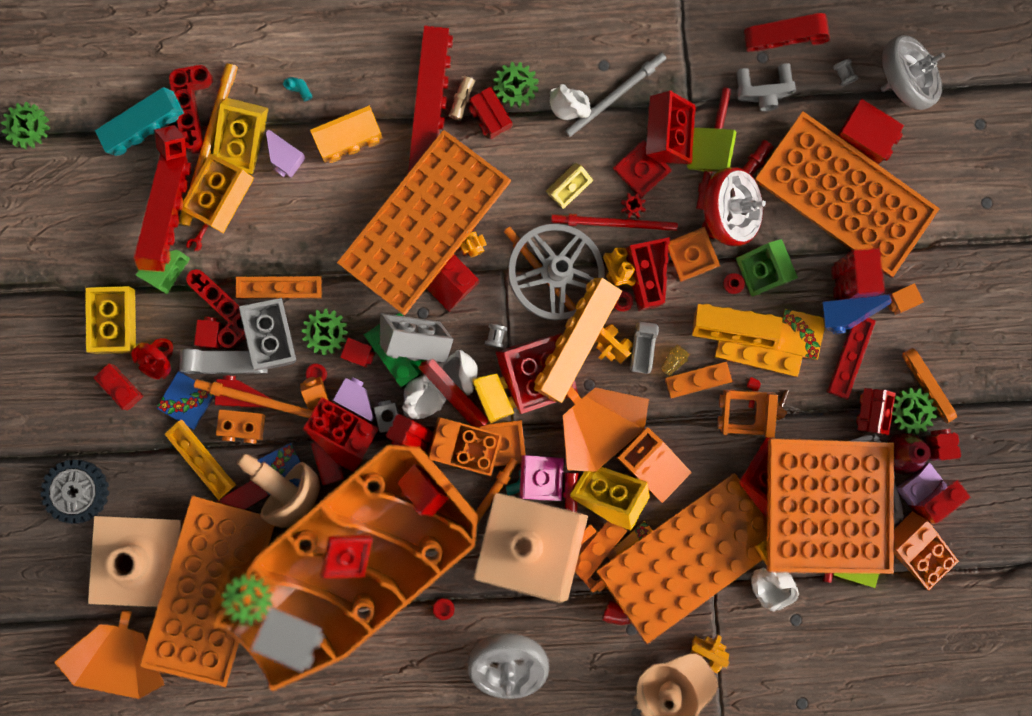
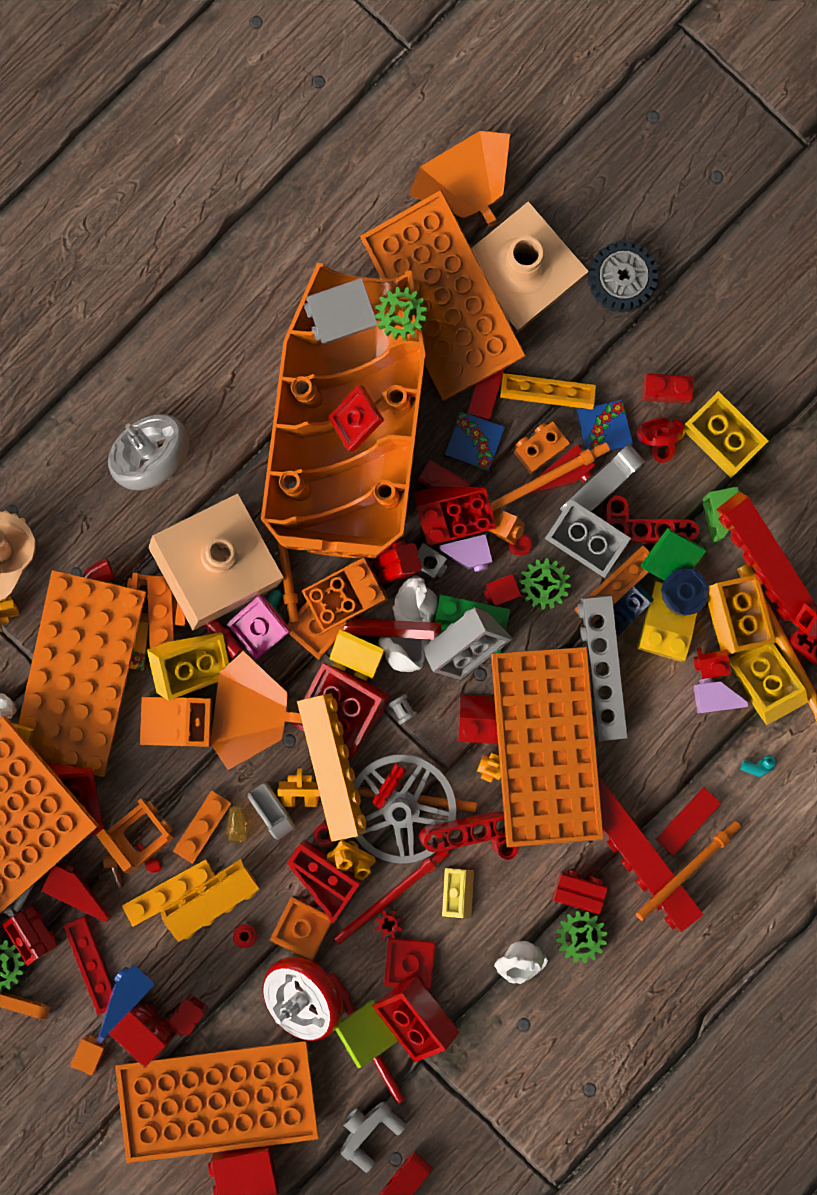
camera: 140 degrees right, 0 degrees up
(198, 238) = (720, 566): red hand -> none
(207, 333) = (637, 496): red brick -> none
(223, 270) = (671, 554): none -> green tile
(237, 240) = (685, 591): none -> dark blue tile
(265, 178) = (712, 664): none -> red bracket
(266, 232) = (664, 631): none -> yellow slope
(286, 265) = (630, 607): none -> dark blue slope
(286, 501) = (446, 419): light nougat piece -> none
(347, 134) = (679, 762): light orange slope -> none
(366, 196) = (616, 726): none -> light grey brick
(368, 63) = (720, 840): none -> orange bar
(377, 95) = (688, 821): none -> red tile
(423, 491) = (343, 525): red brick -> none
(443, 609) = (243, 452): red tile -> none
(461, 98) = (615, 883): tan pin -> none
(549, 230) = (466, 835): none -> red beam
(551, 292) = (389, 786): none -> red axle
(646, 69) = (484, 1053): light grey bar -> none
(757, 159) = (320, 1061): red pin -> none
(766, 267) = (228, 974): bright green slope -> none
(801, 334) = (150, 944): light orange tile -> none
(817, 264) = (187, 1015): none -> red brick
(821, 415) = (72, 889): none -> red slope

